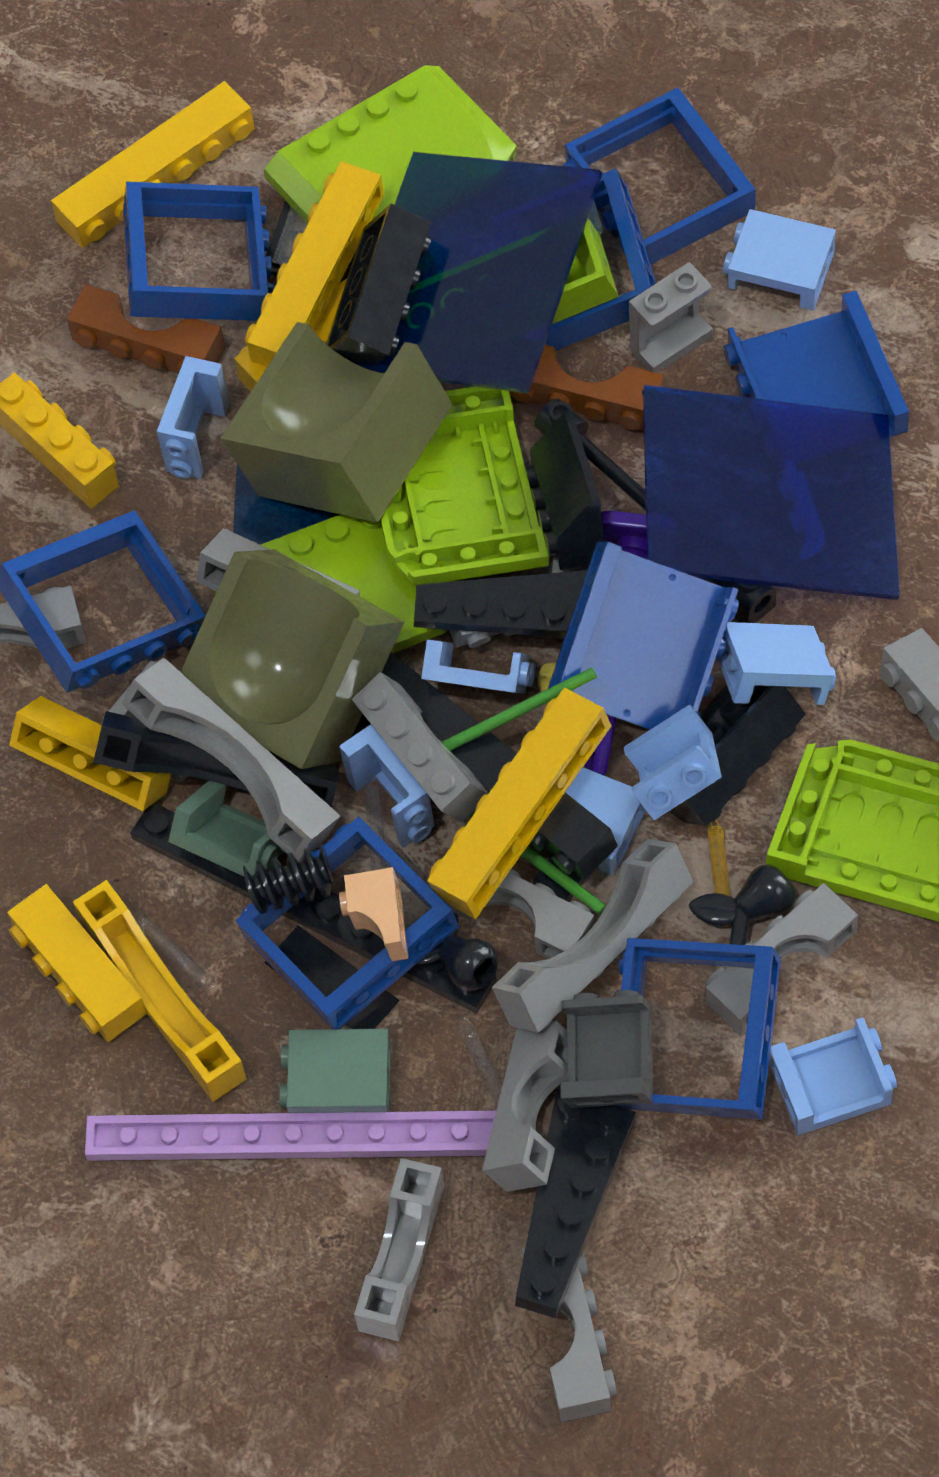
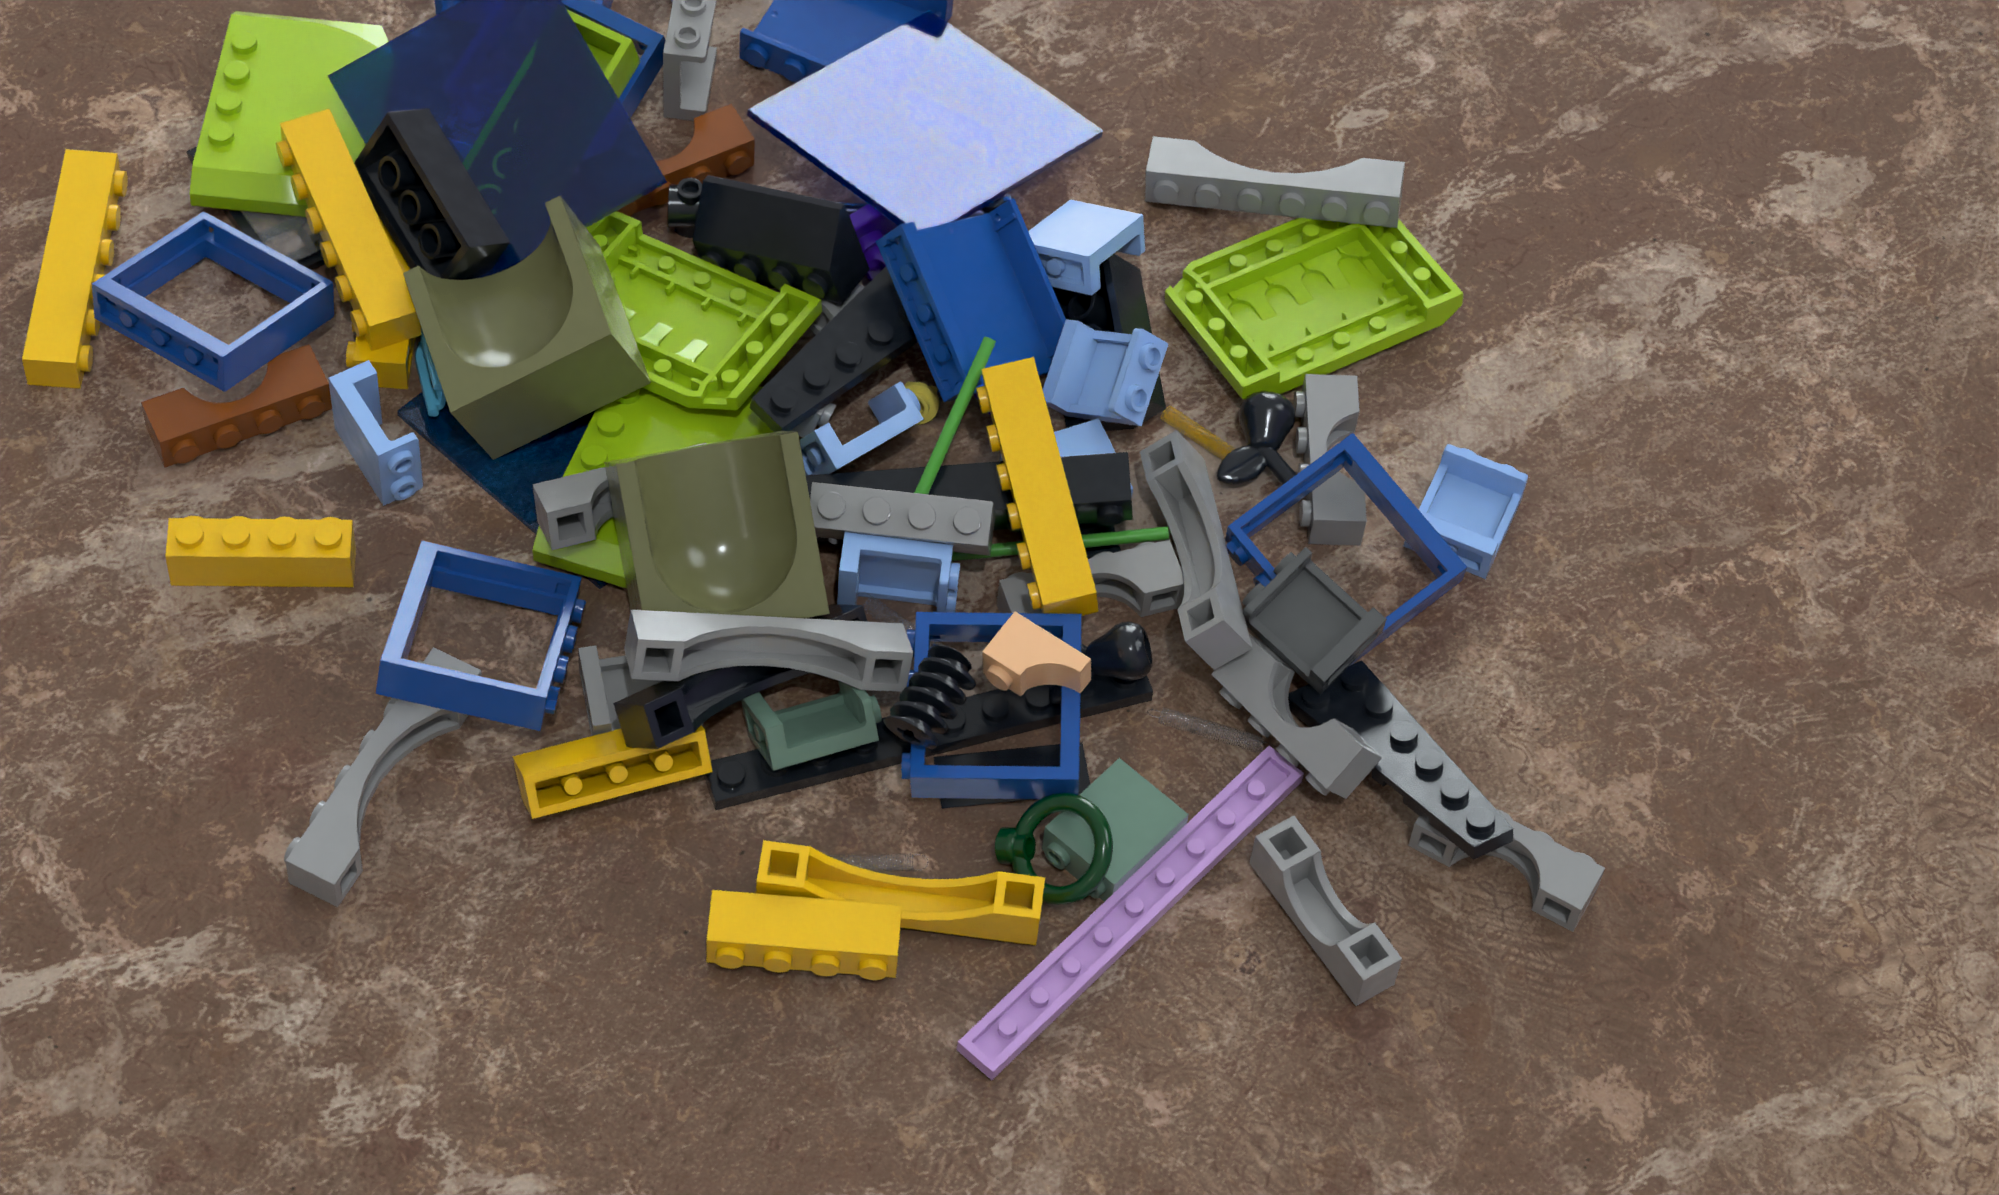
camera: 60 degrees left, 5 degrees down
(268, 1028) = (1018, 845): none -> dark green piece

